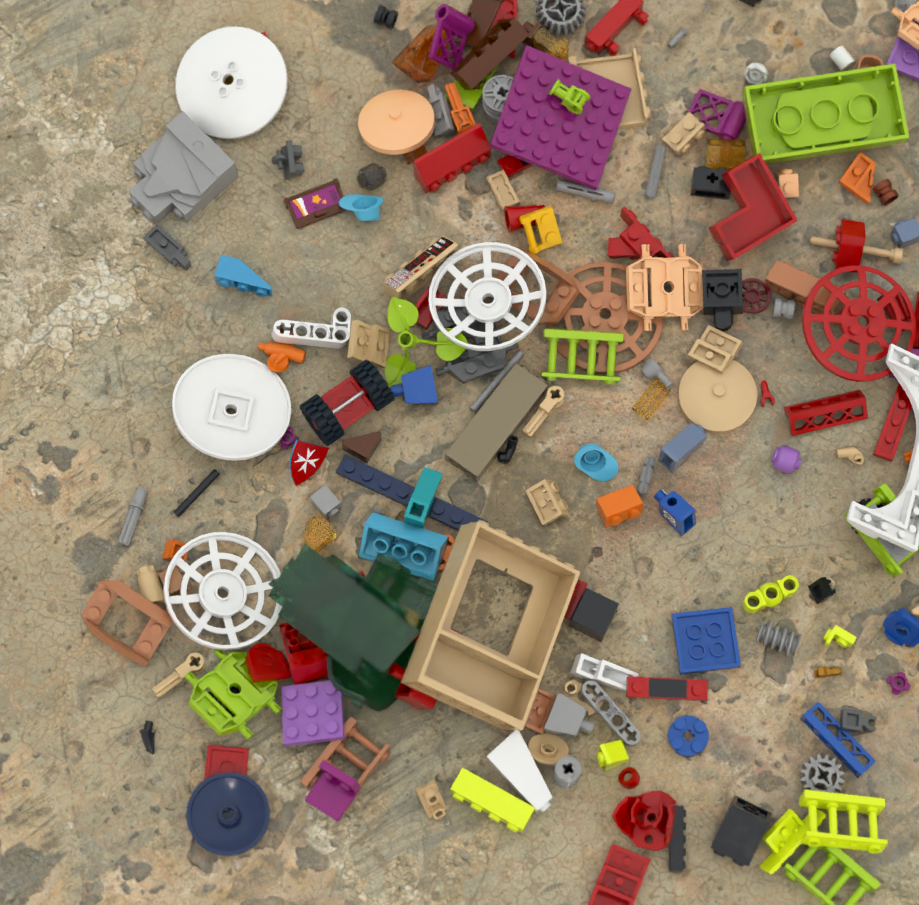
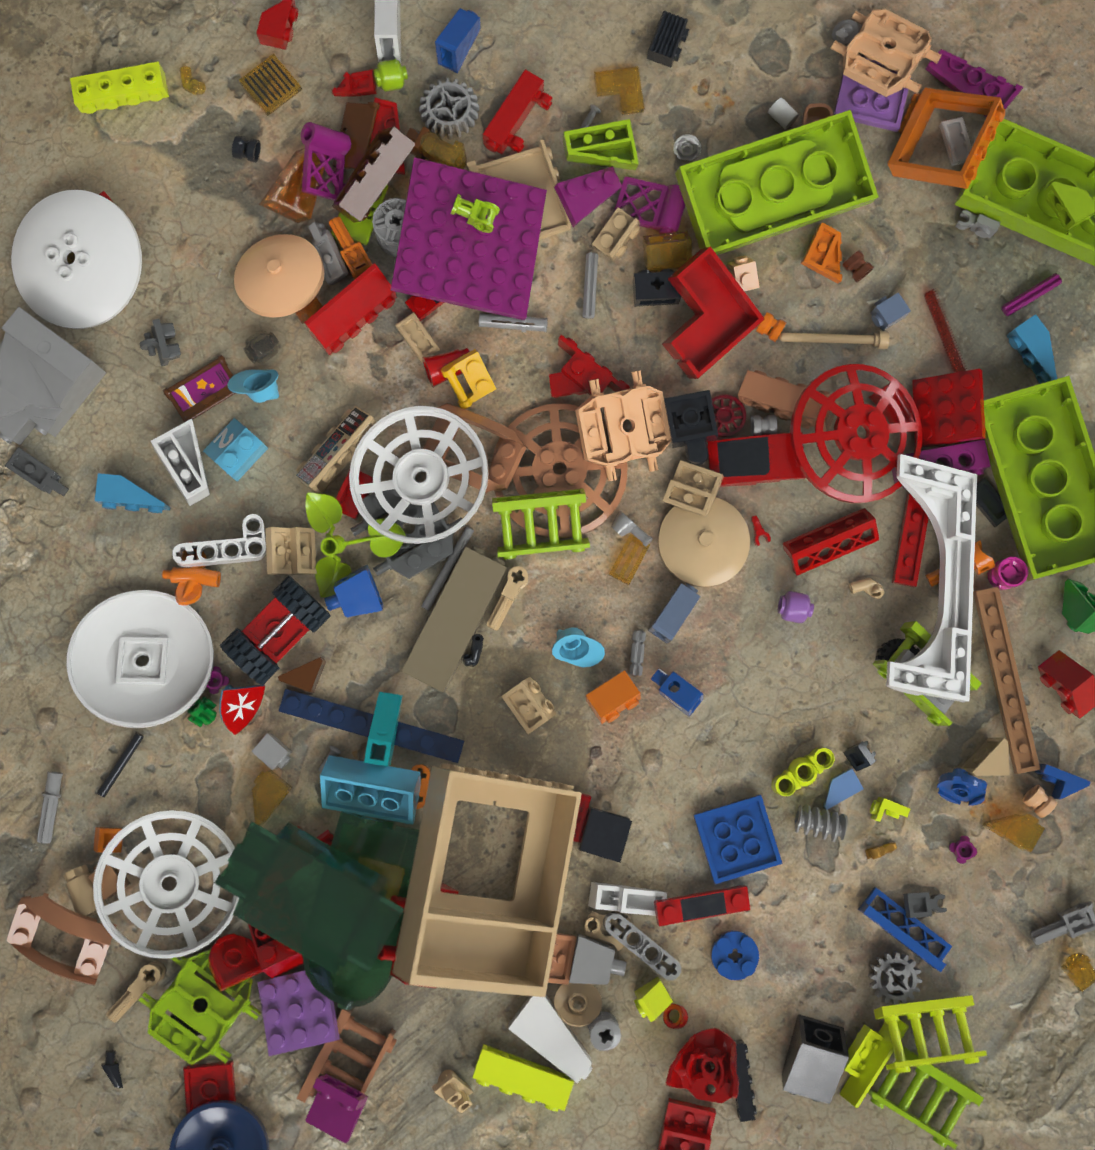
camera: 15 degrees left, 10 degrees up
(273, 460) = (202, 712): none -> green gear
(291, 257) = (182, 459): none -> white wedge
(336, 255) = (235, 449): none -> medium azure slope
(665, 96) = (586, 193): none -> magenta wing
(684, 60) = (602, 145): none -> lime wedge
(710, 12) = (622, 82): none -> clear yellow plate
(771, 334) = (754, 459): none -> slope
(802, 615) = (842, 787): none -> medium blue tile
(803, 229) = (770, 321): none -> orange wheel
(850, 241) = (829, 337): red brick -> none

